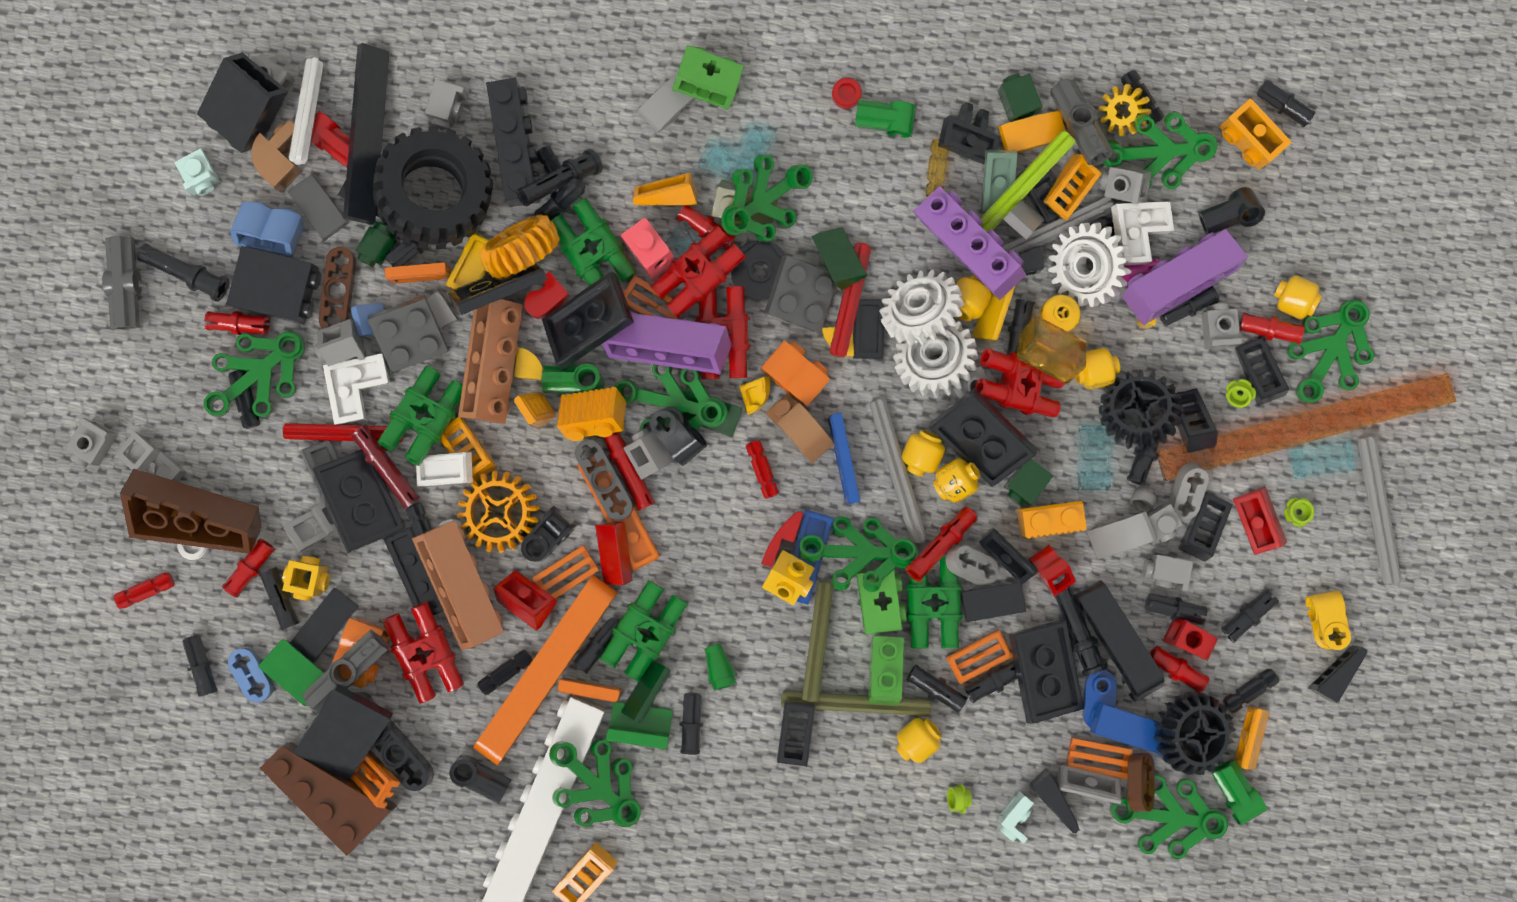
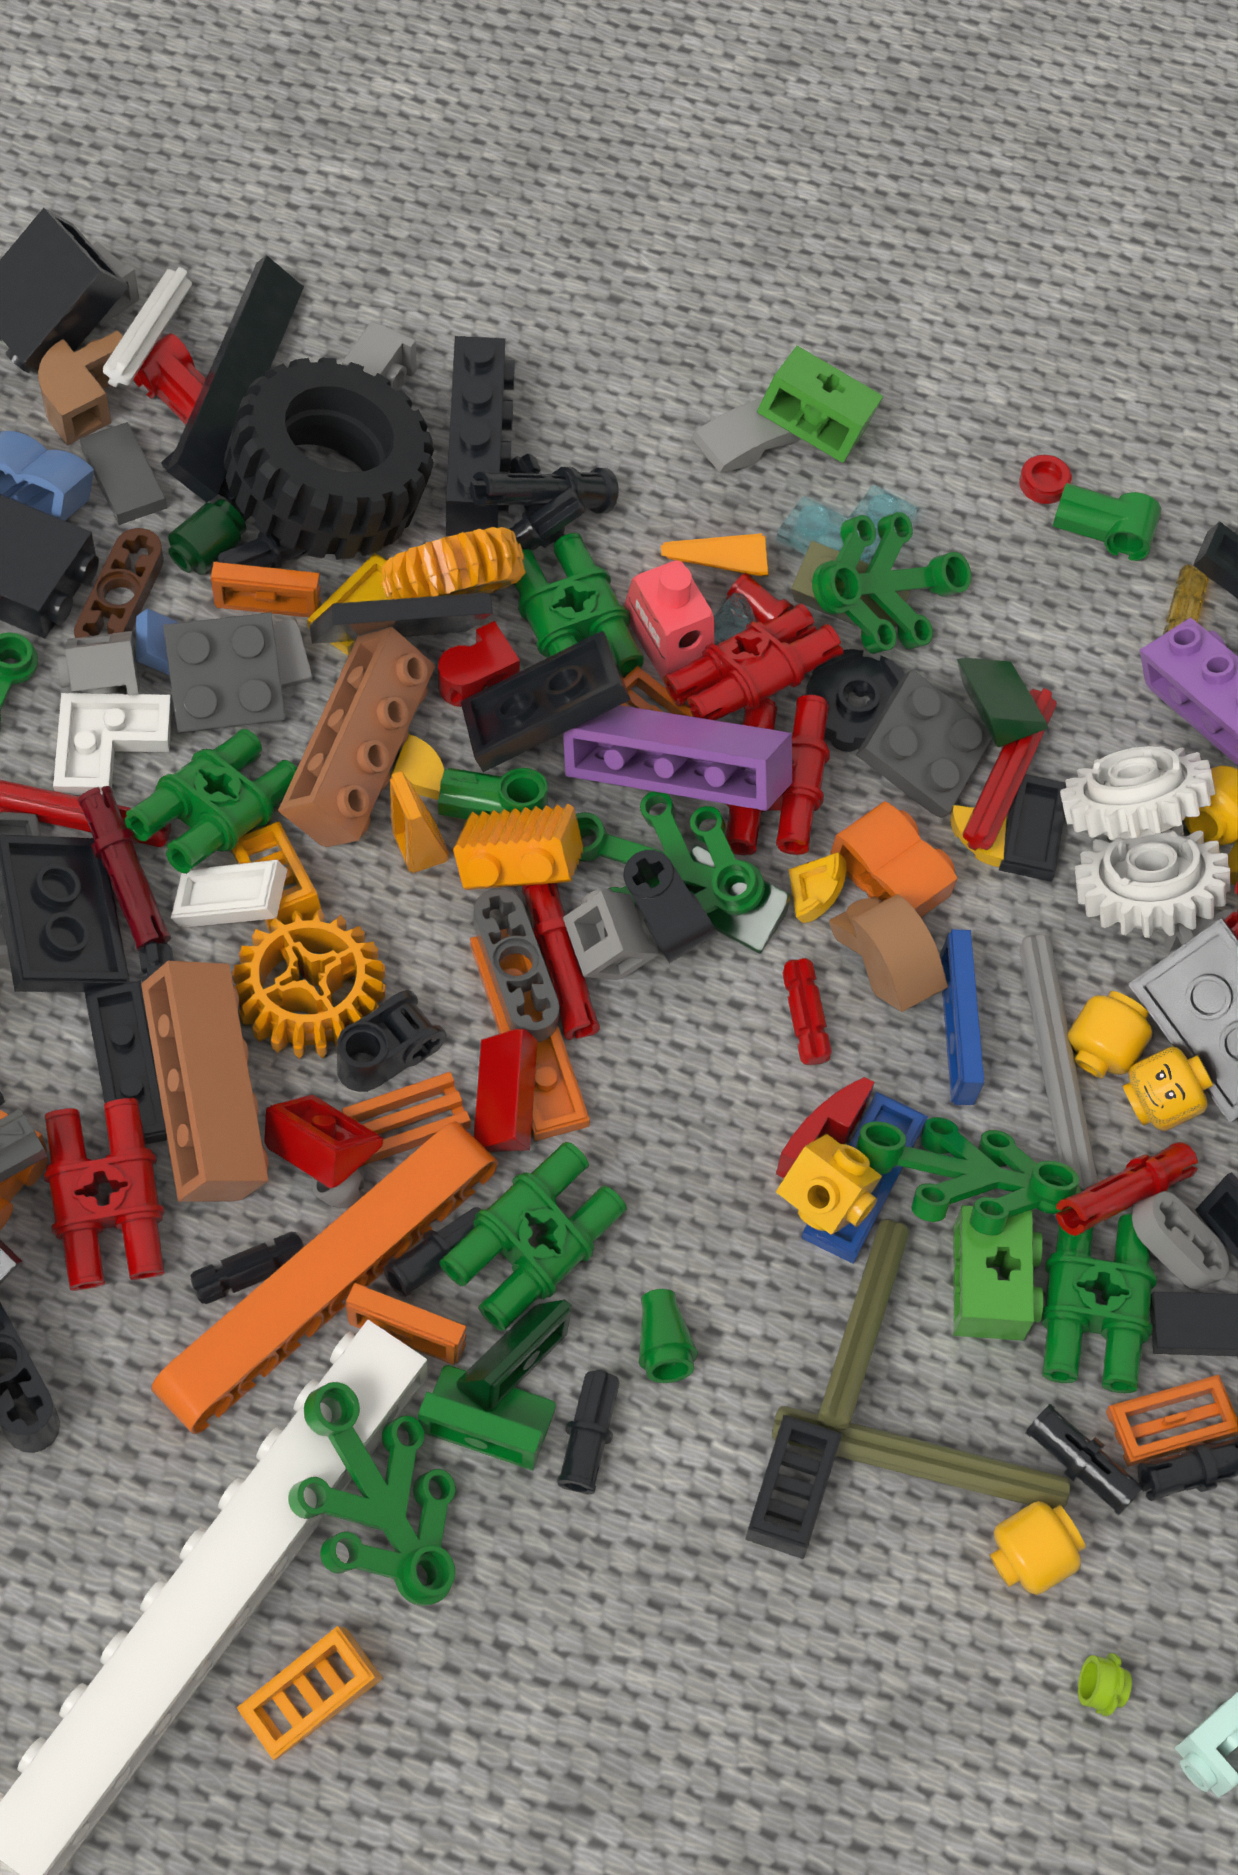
camera: 10 degrees right, 25 degrees down
(483, 780) = (153, 1451): black piece -> none
(886, 670) = (991, 1394): bright green brick -> none

